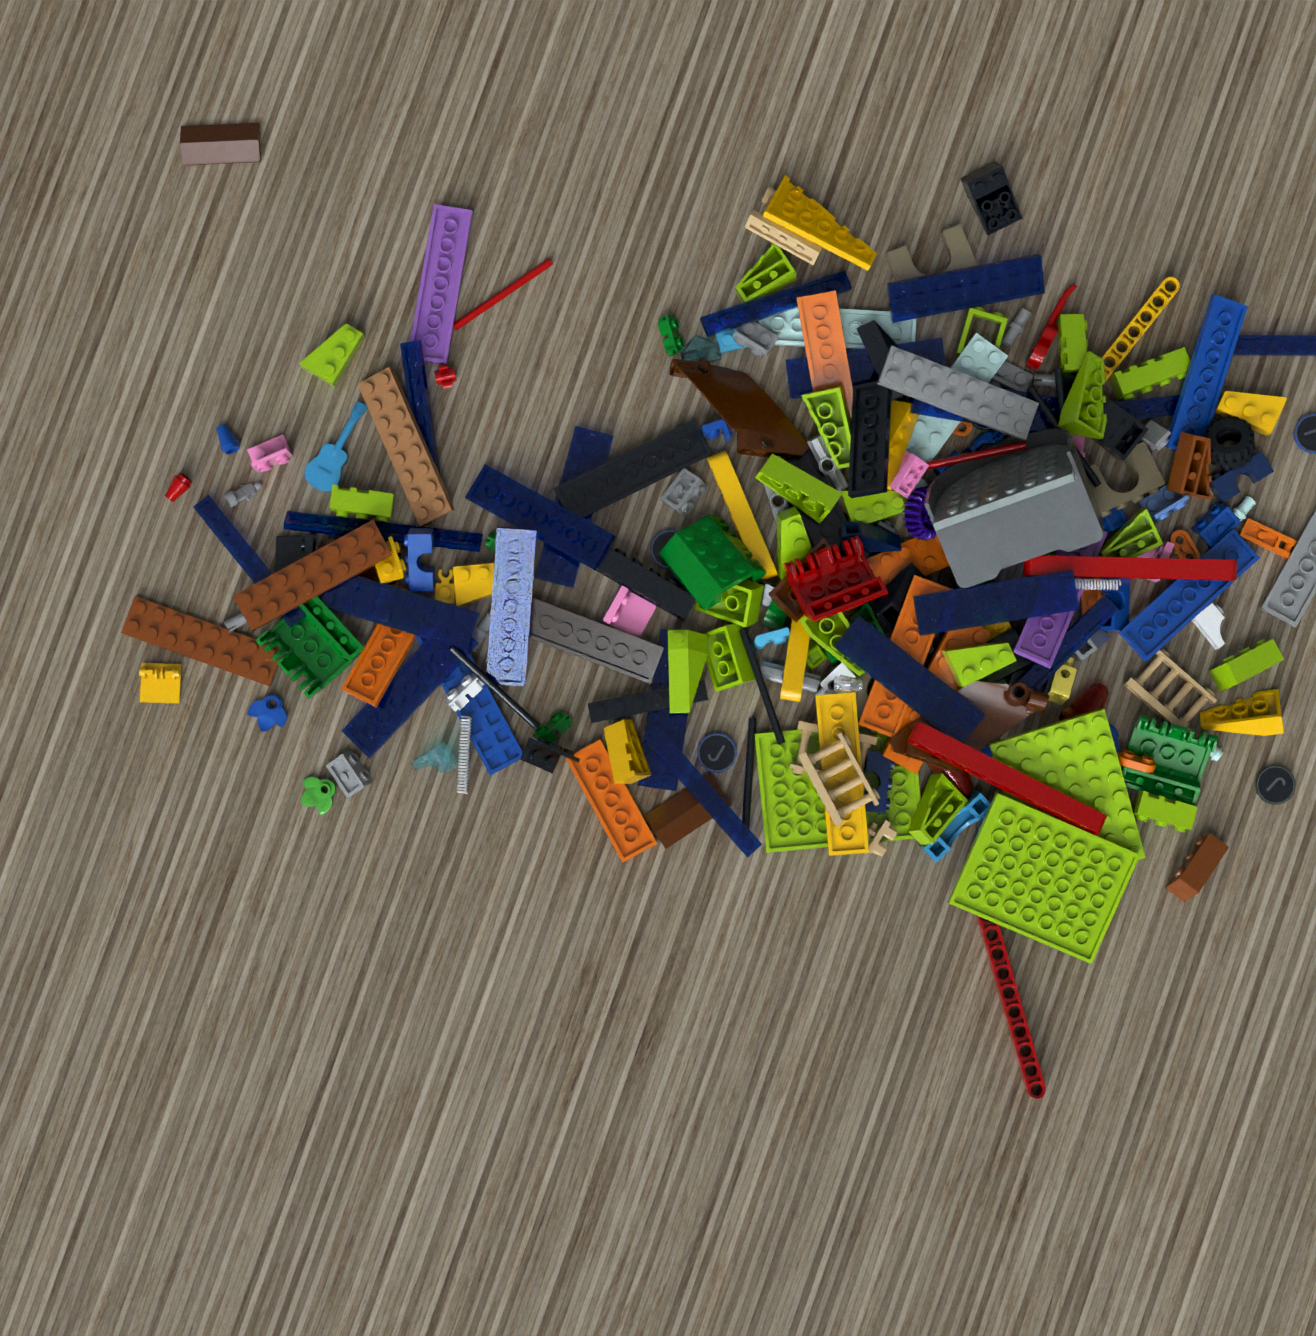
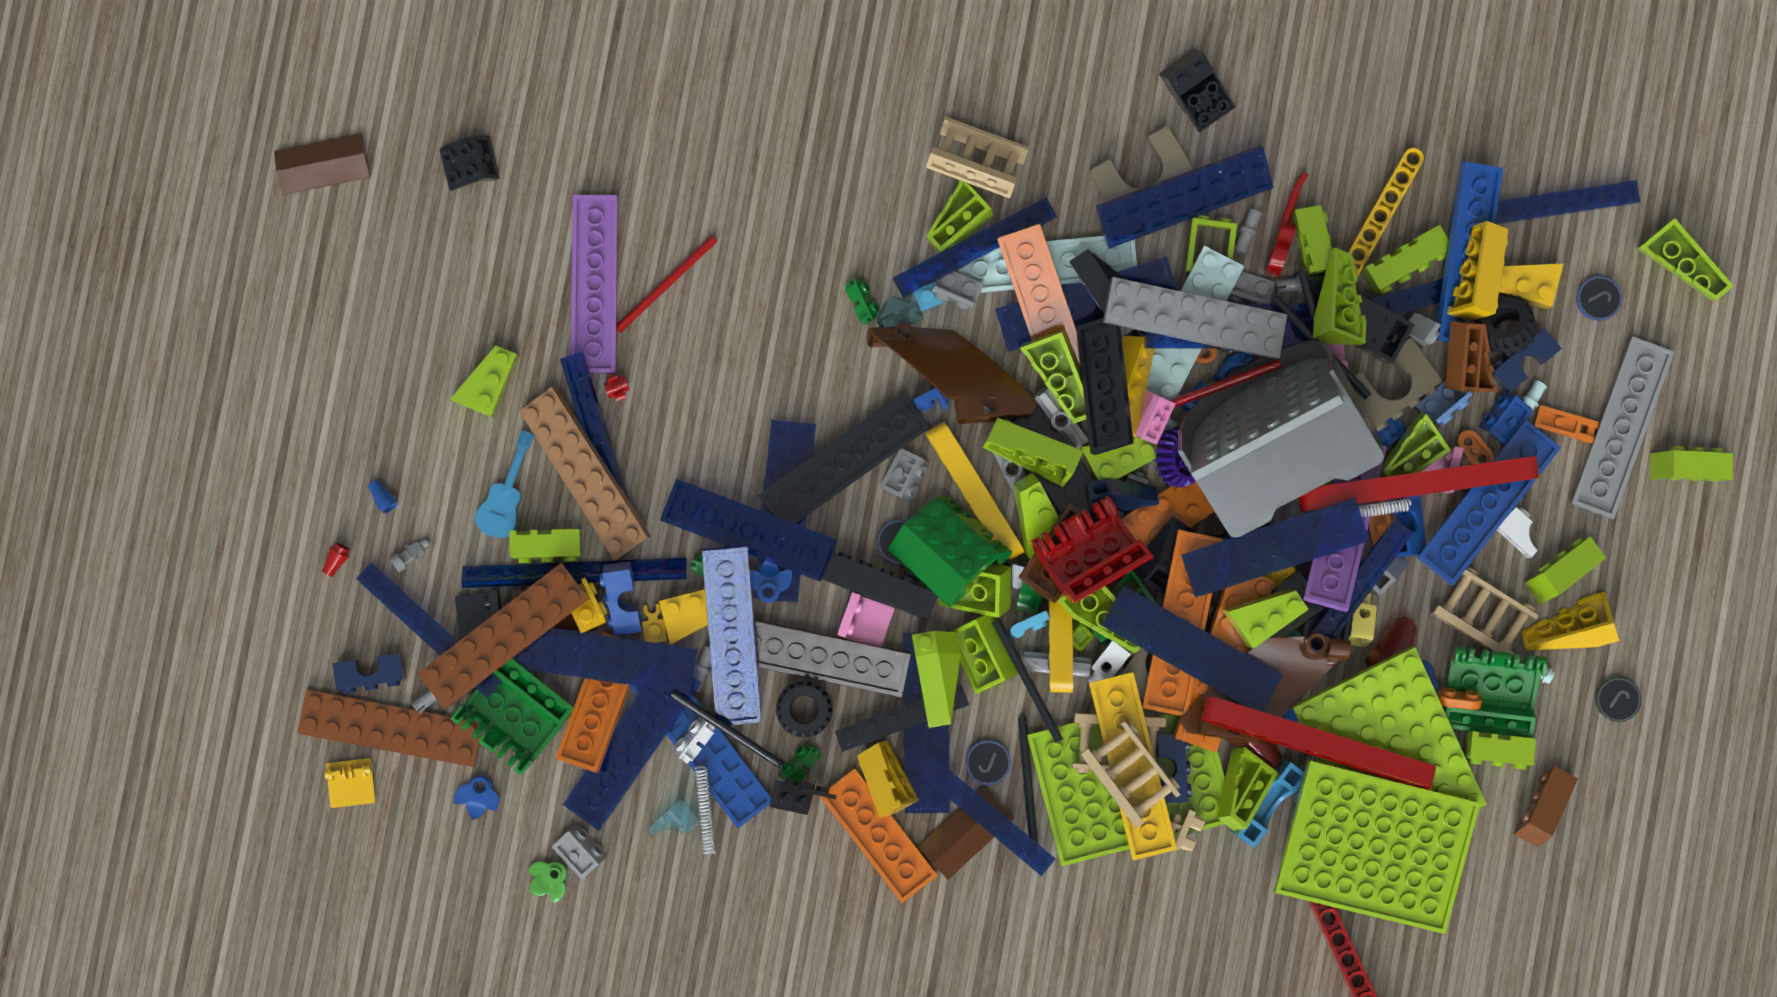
camera: 10 degrees left, 0 degrees up
(209, 591) = (389, 671): none -> dark blue arch
(270, 453) = (433, 504): bright pink bracket -> none
(348, 161) = (469, 161): none -> black bracket
(551, 562) = (770, 578): none -> blue plate
(554, 666) = (785, 701): none -> black tyre
(813, 222) = (1003, 150): yellow wing -> none
(847, 684) = (1122, 665): clear cone -> none
(1213, 394) = (1480, 273): none -> yellow wedge

